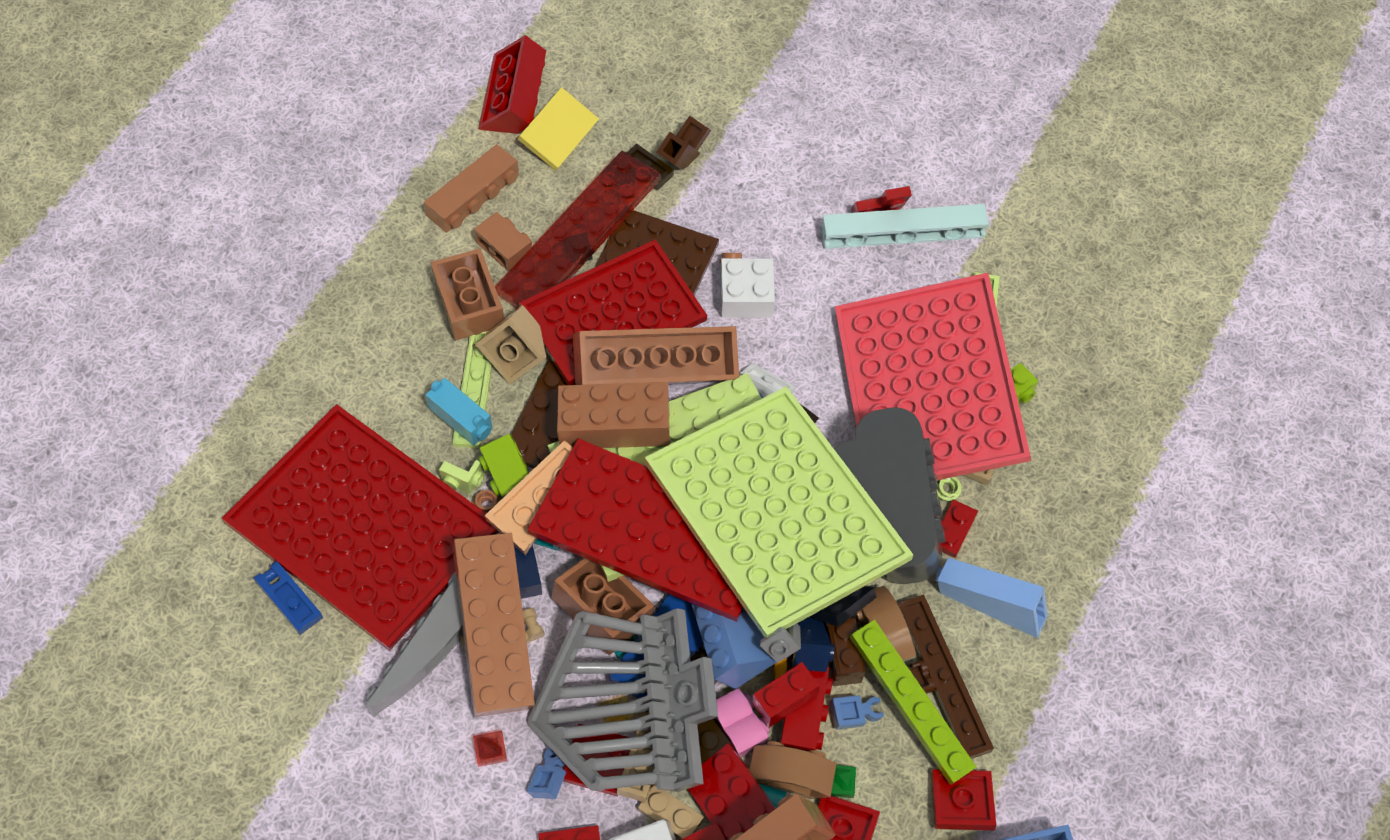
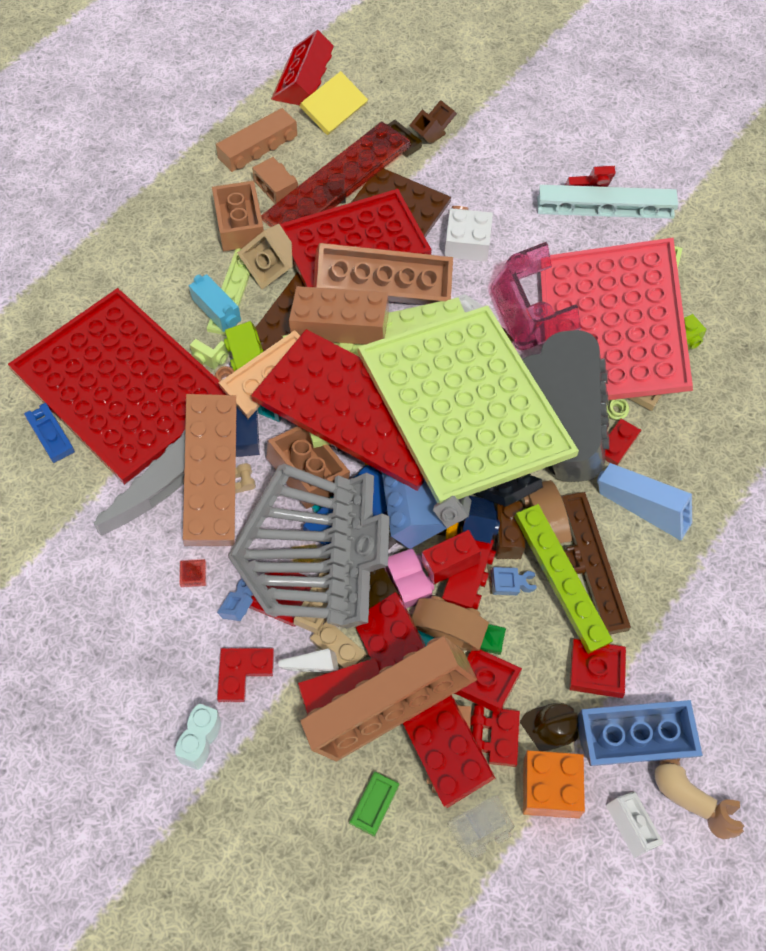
camera: 10 degrees right, 0 degrees up
(829, 396) = (529, 323): none -> clear pink windscreen

